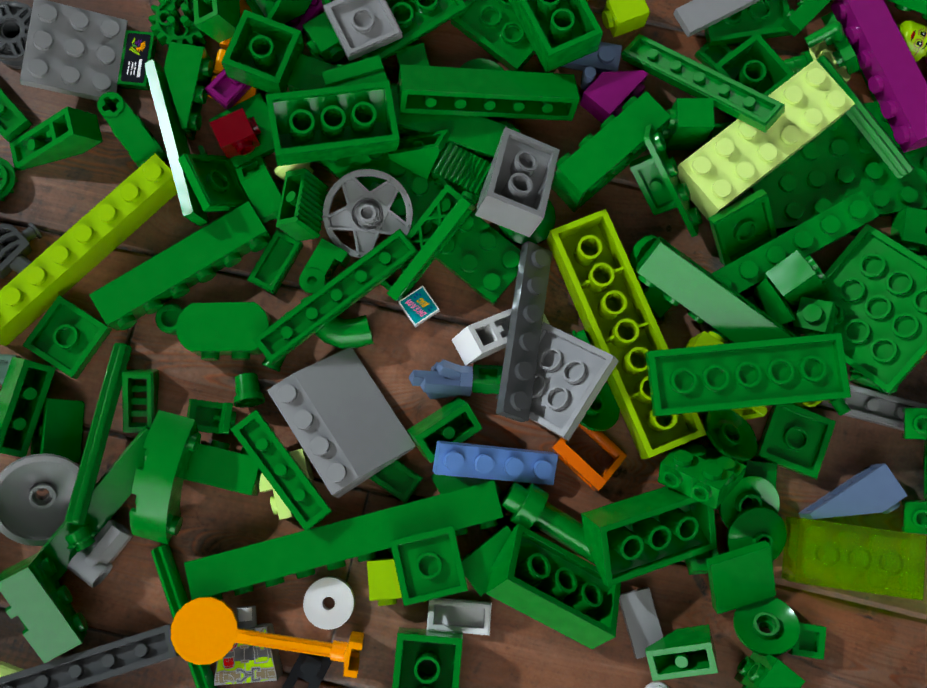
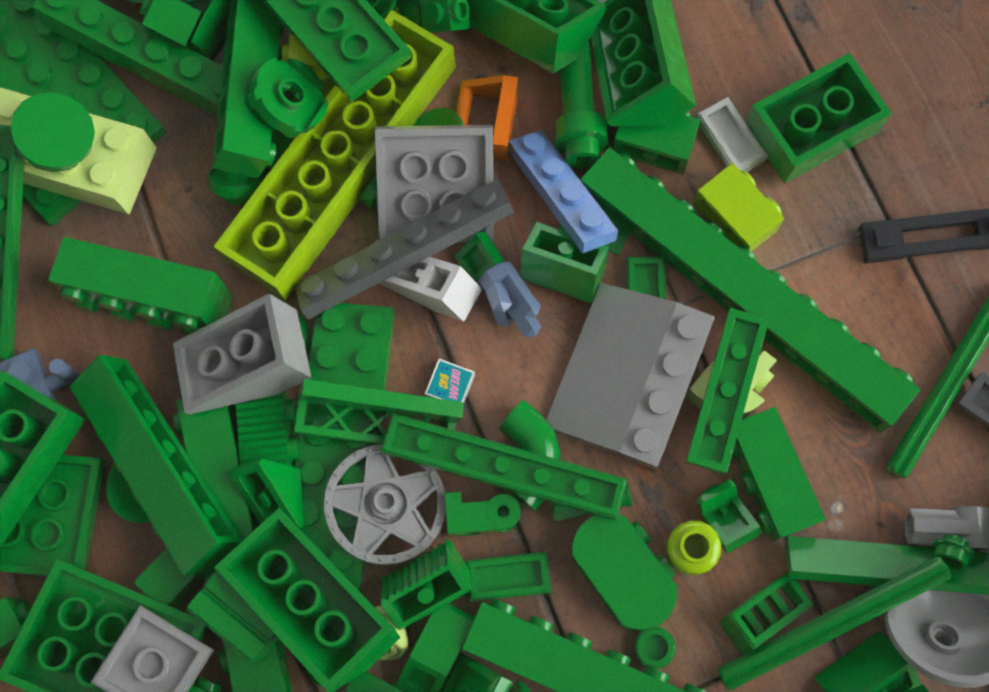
camera: 115 degrees left, 5 degrees down
(161, 480) = (840, 502): green brick -> none
(206, 379) = (693, 548): none -> lime head
(209, 629) = (933, 346): light orange piece -> none
(247, 391) = (670, 498): green piece -> none
(249, 662) = (921, 306): torso -> none
(326, 617) = (824, 252): white piece -> none
(428, 565) = (709, 180): green plate -> none
(611, 92) = (66, 335): magenta slope -> none
(660, 184) = (146, 214): green bracket -> none
(681, 297) = (275, 109): none -> green plate
(689, 123) = (50, 220): green brick -> none
(743, 227) = (144, 105): green tile -> none
(748, 145) = (52, 131): none -> green tile

